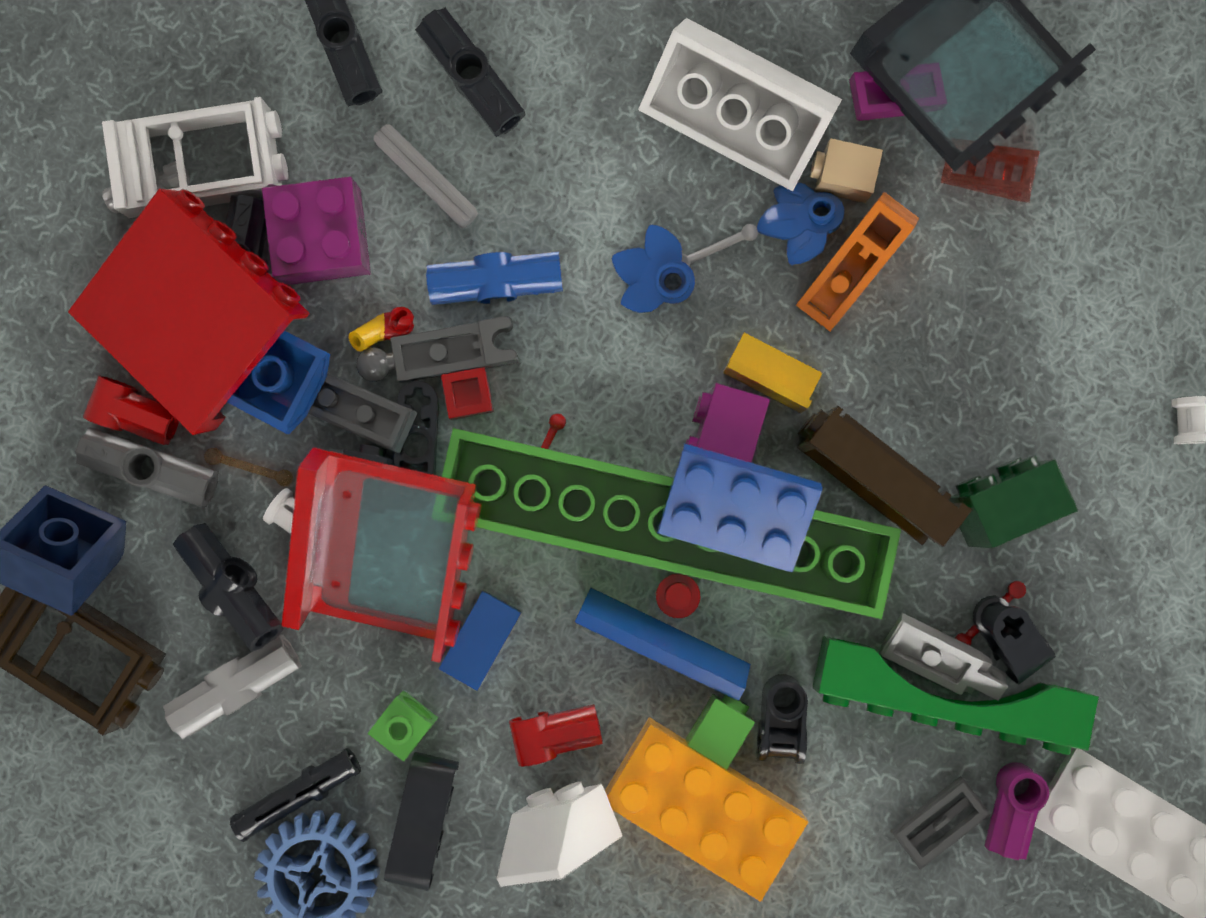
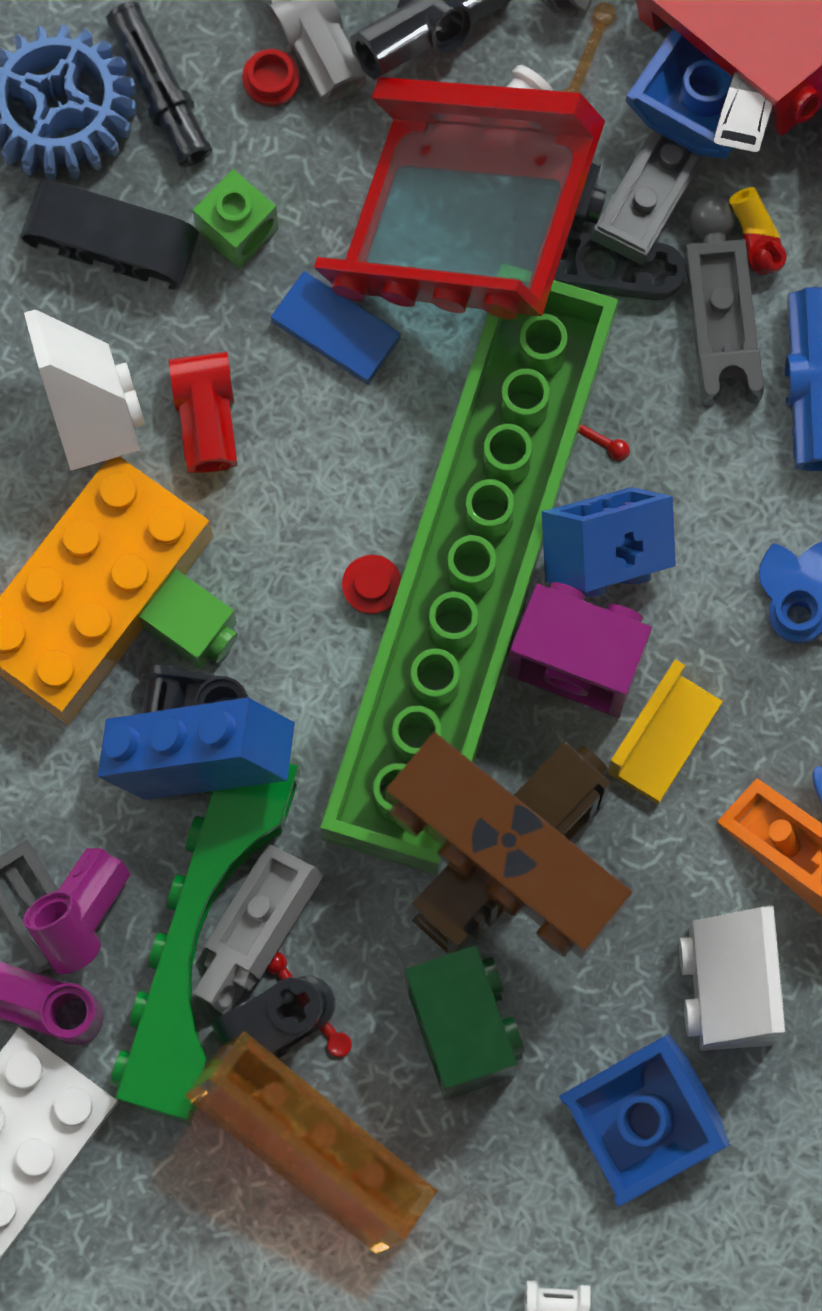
camera: 90 degrees right, 10 degrees down
(283, 707) = (271, 77): none -> red plate
(301, 341) = (743, 117): none -> white sticker
(467, 393) = (664, 333): red plate -> none
(639, 422) = (609, 540): none -> blue brick
(664, 644) = (310, 557): blue tile -> none
(739, 508) = (485, 641): plate -> none
(832, 717) = (196, 749): none -> blue brick
(905, 477) = (507, 846): none -> reddish brown brick
(957, 308) = (733, 980): none -> white slope
(965, 799) = (67, 919): none -> magenta piece
(1057, 364) = (647, 1119): none -> blue slope
(1110, 605) = (311, 1143): none -> clear orange brick

